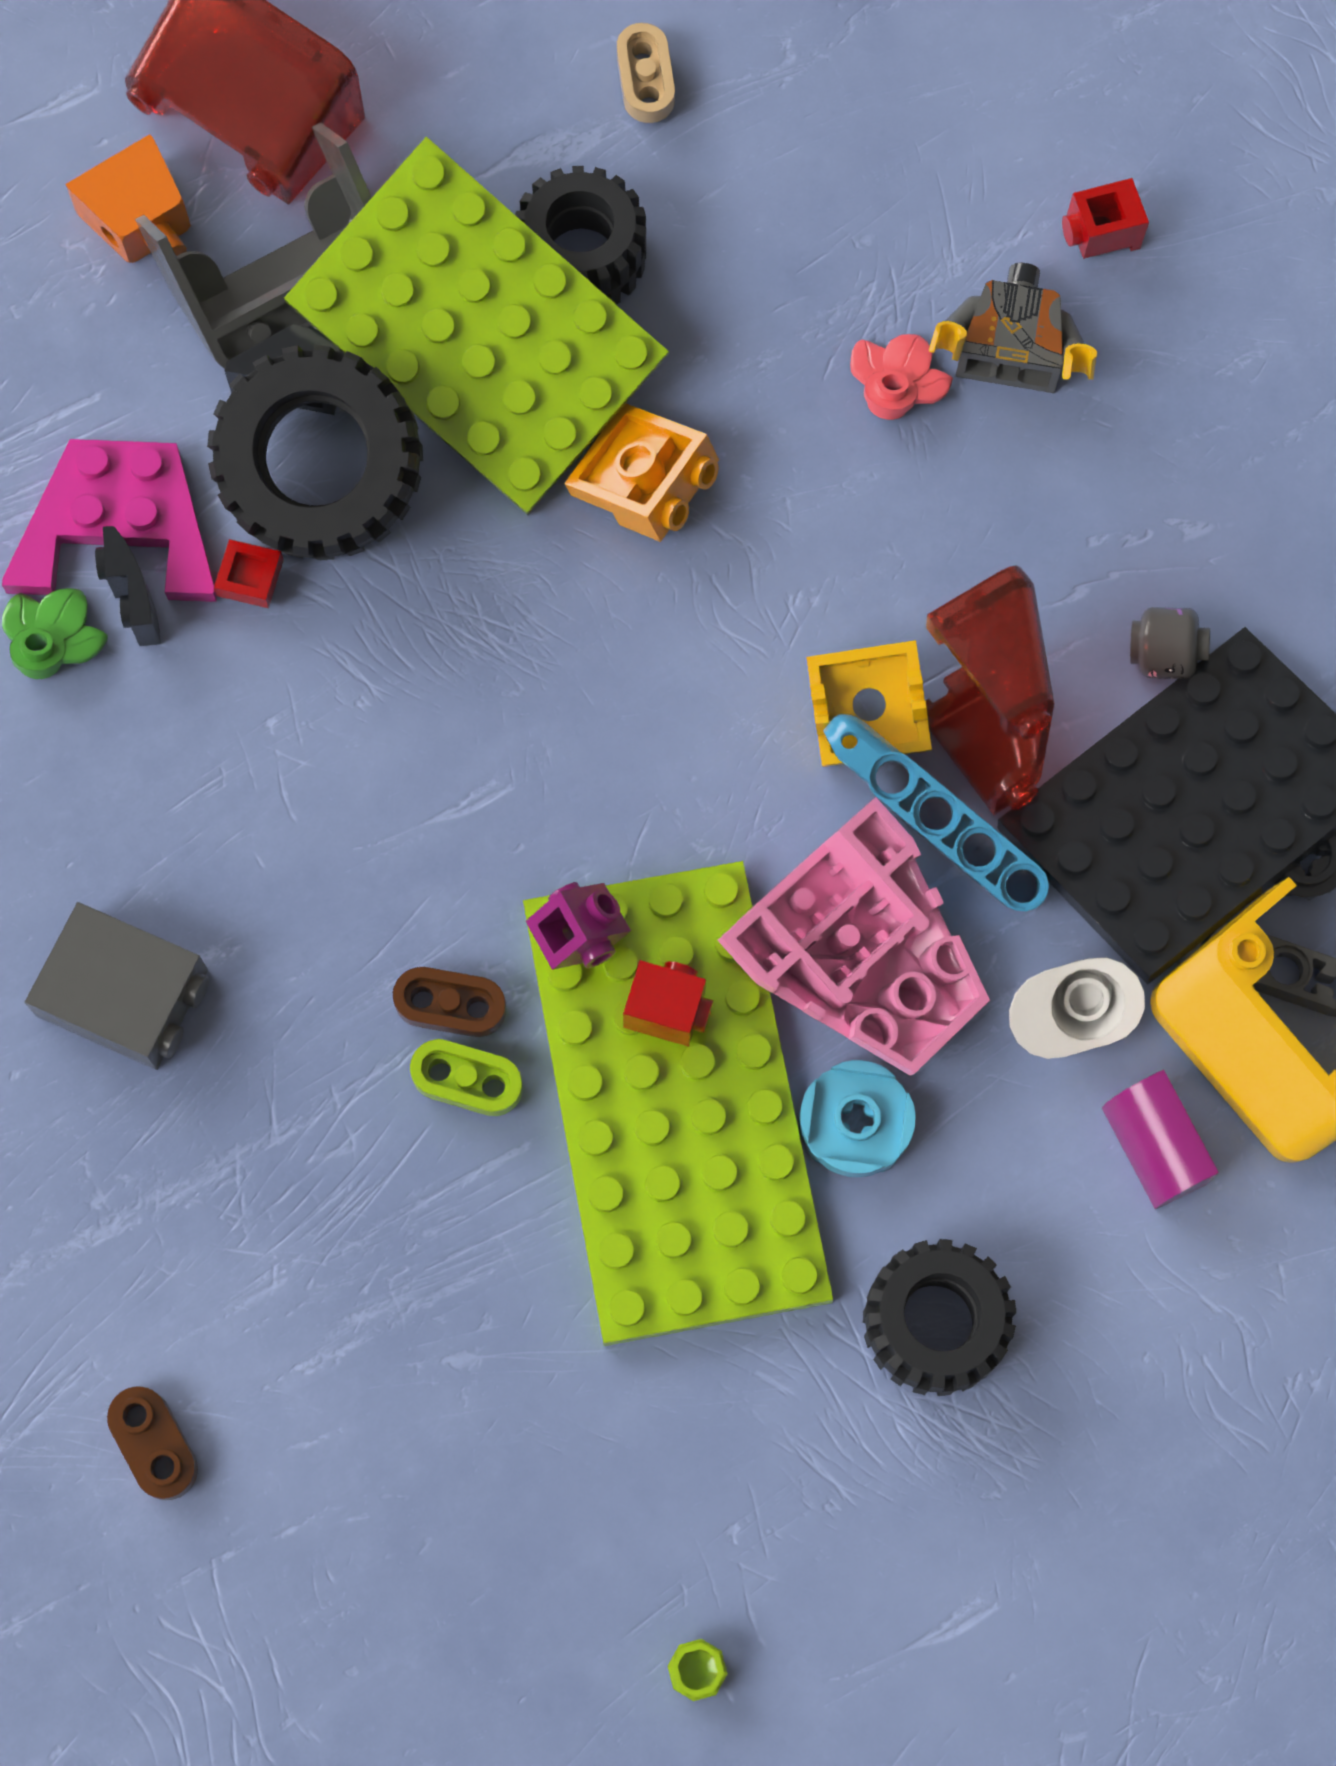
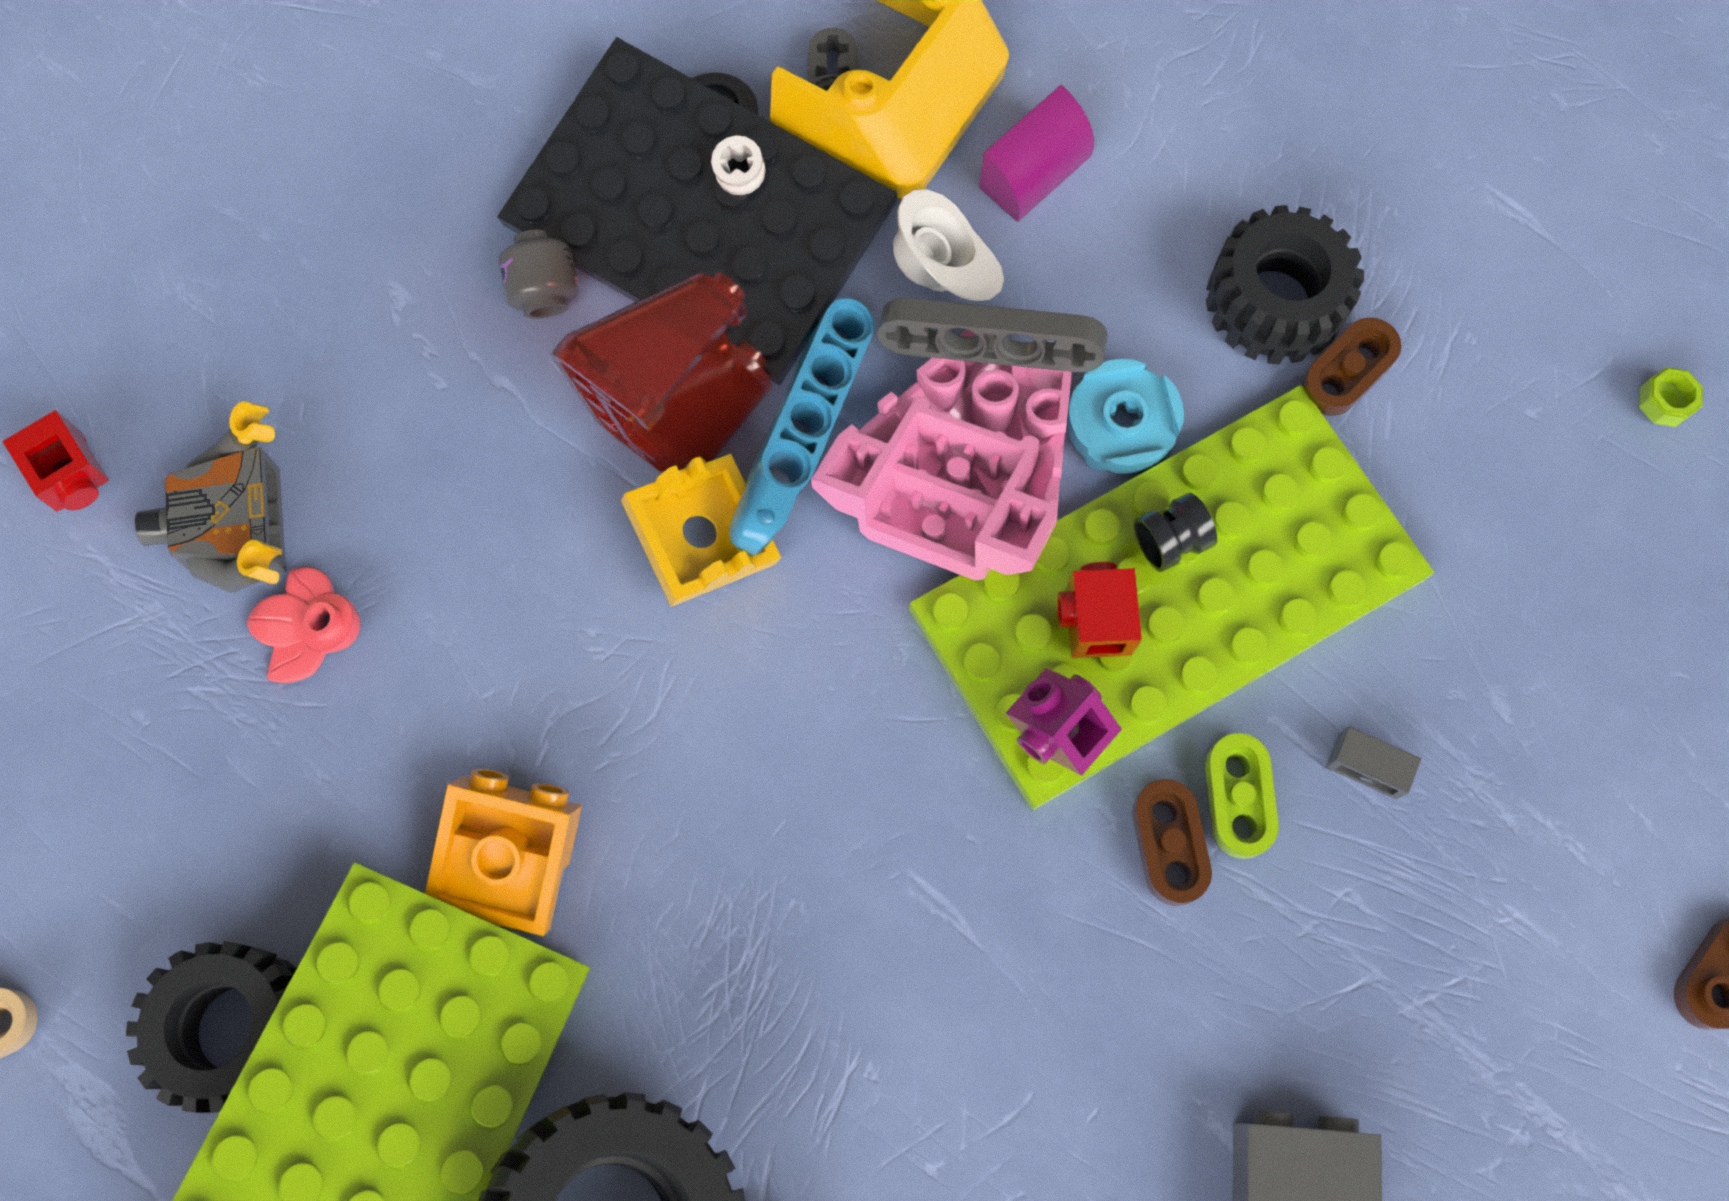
camera: 110 degrees left, 0 degrees up
(451, 1208) = (1373, 763): none -> dark grey piece
(717, 1097) = (1175, 532): none -> black wheel
(836, 1358) = (1348, 369): none -> reddish brown plate
(964, 1005) = (1076, 347): none -> dark grey beam
(1216, 817) = (738, 148): none -> white bush

